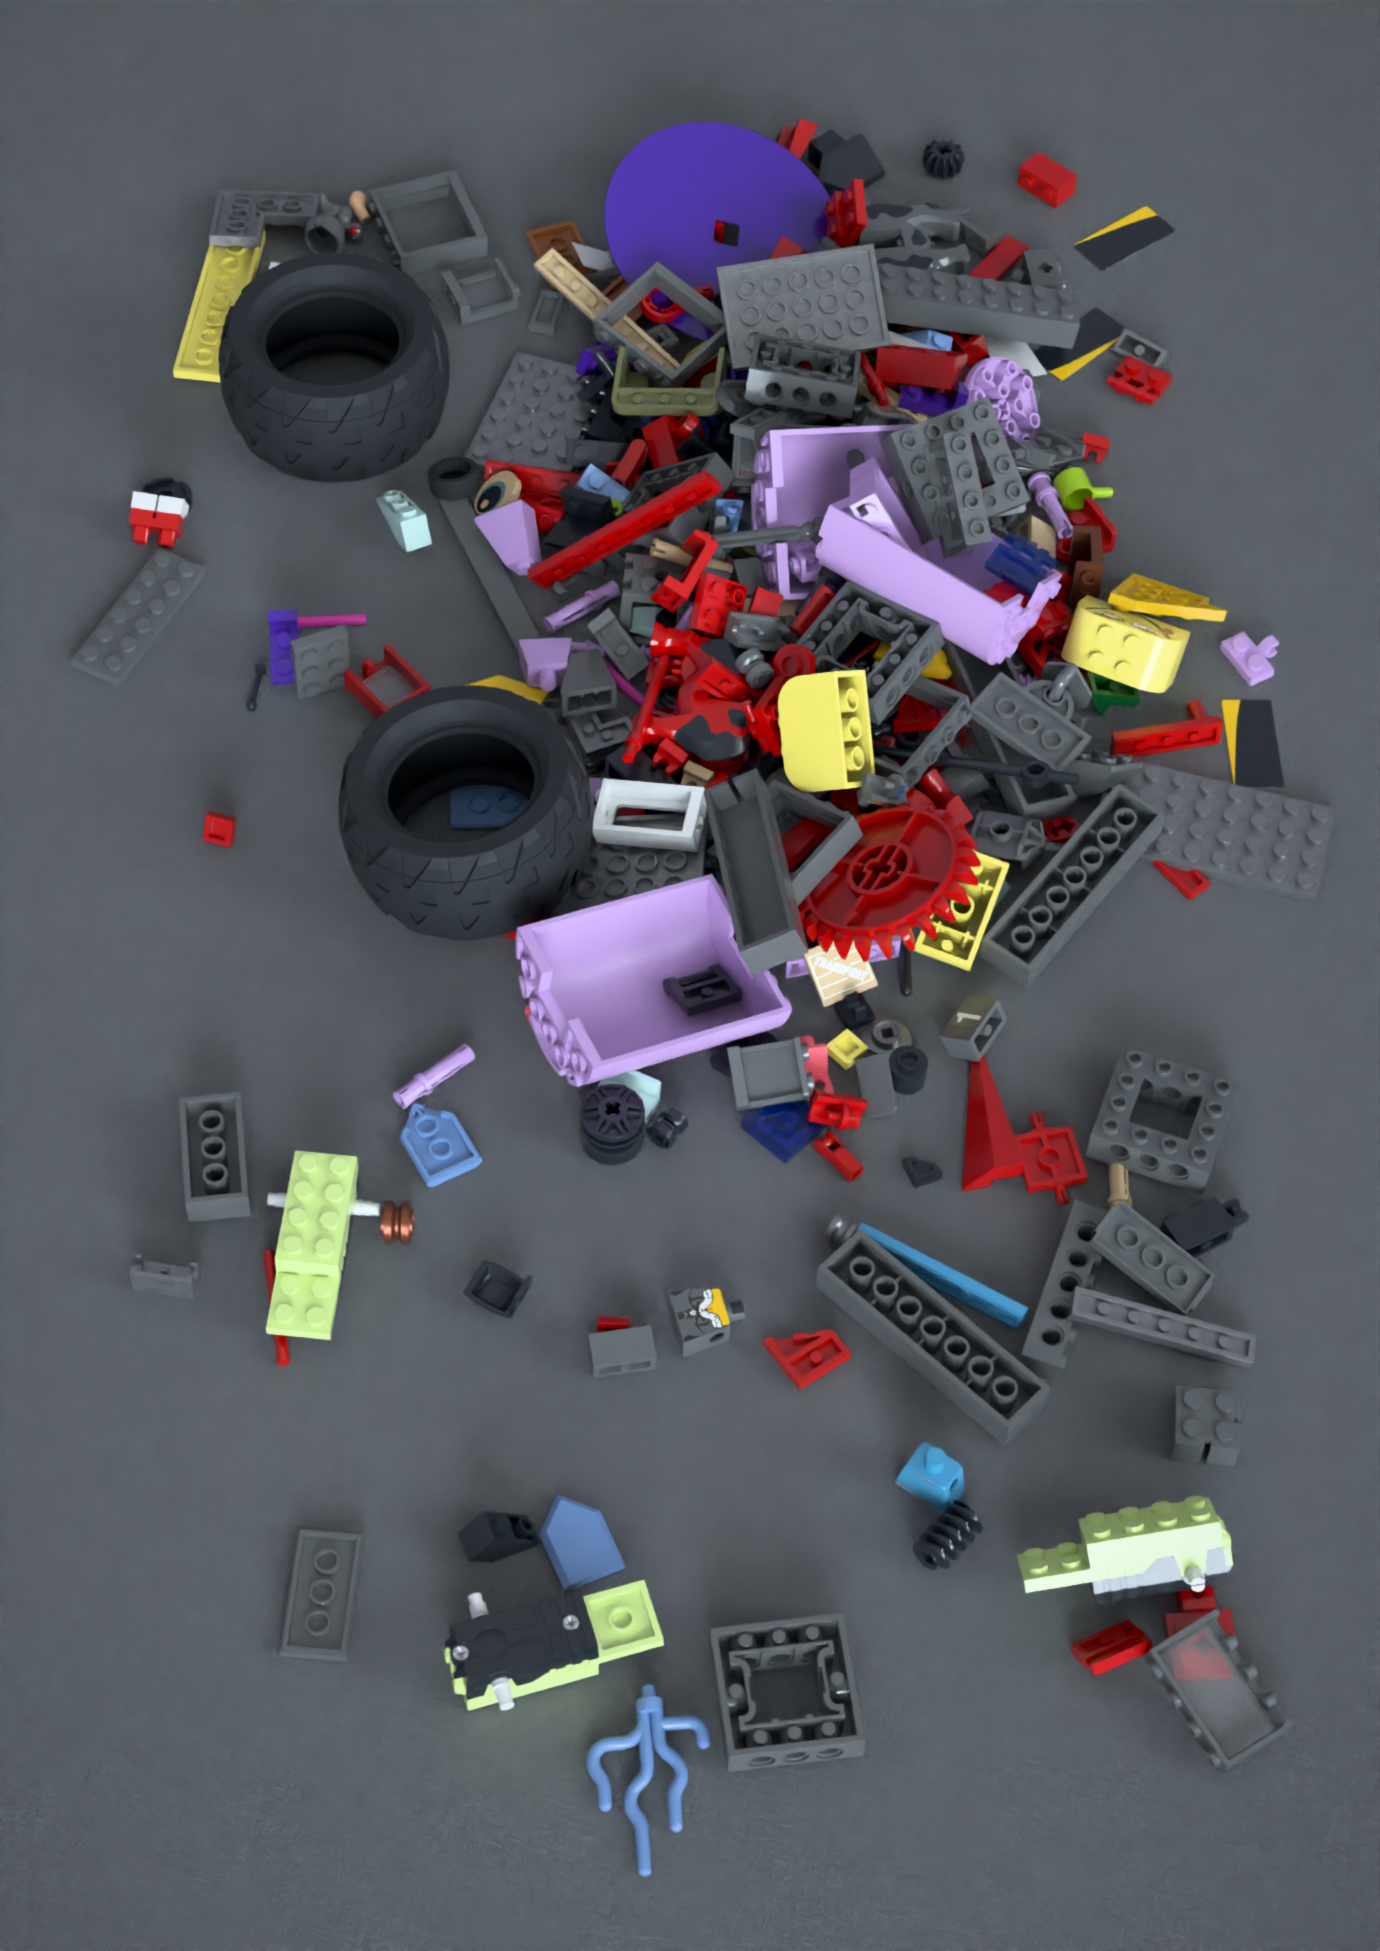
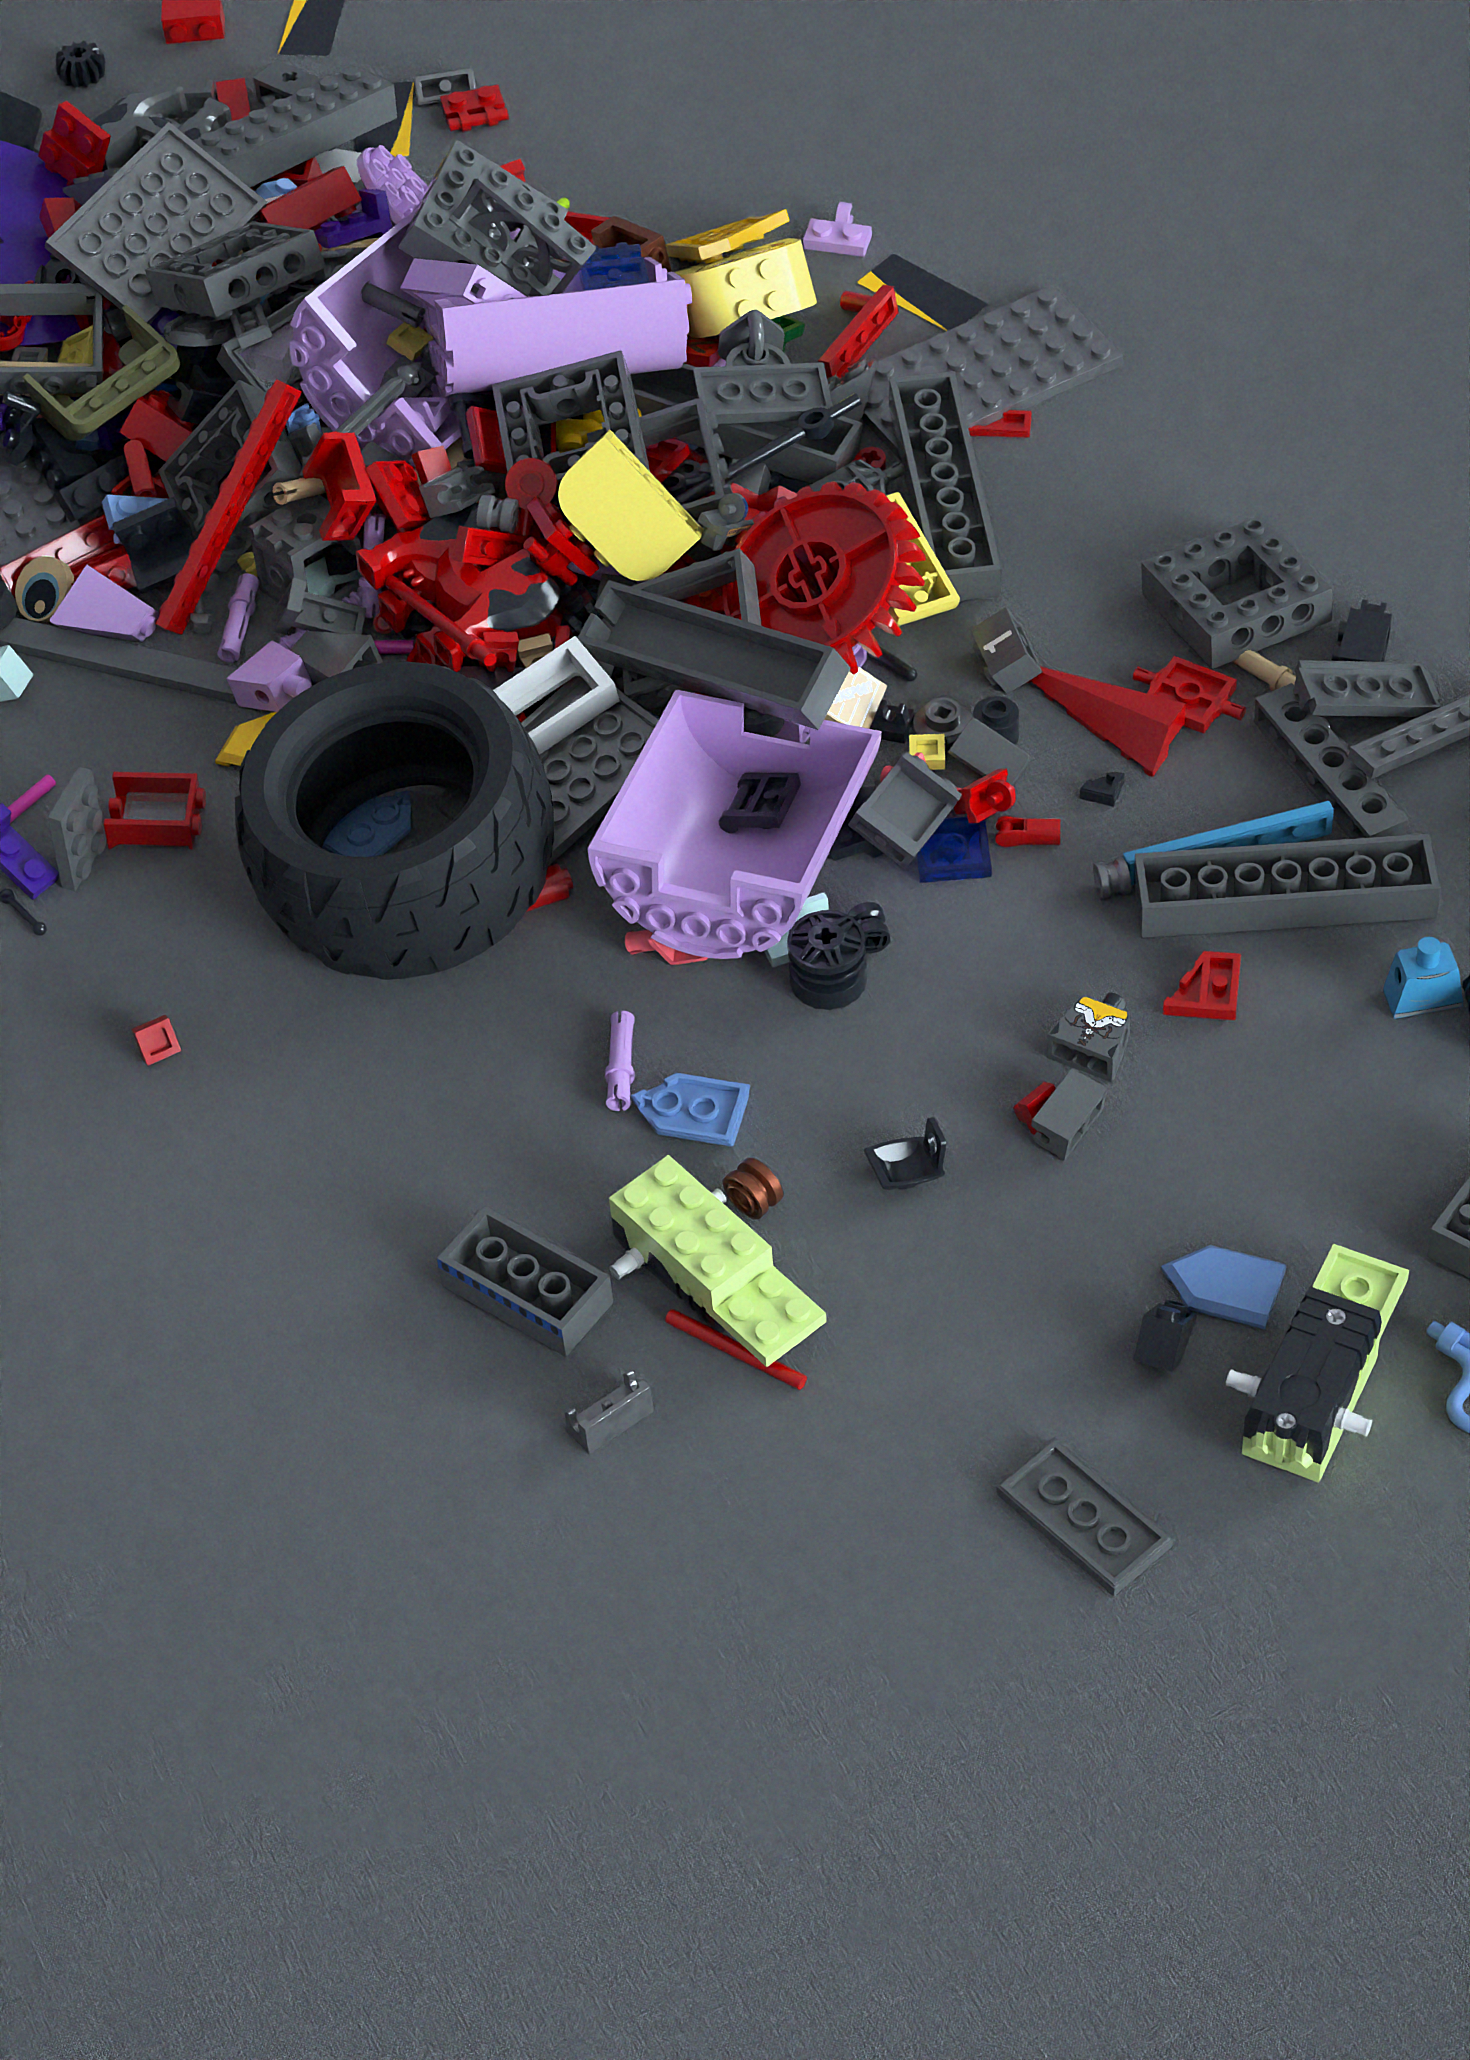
camera: 40 degrees left, 5 degrees down
(686, 425) = (169, 390): red tile -> none

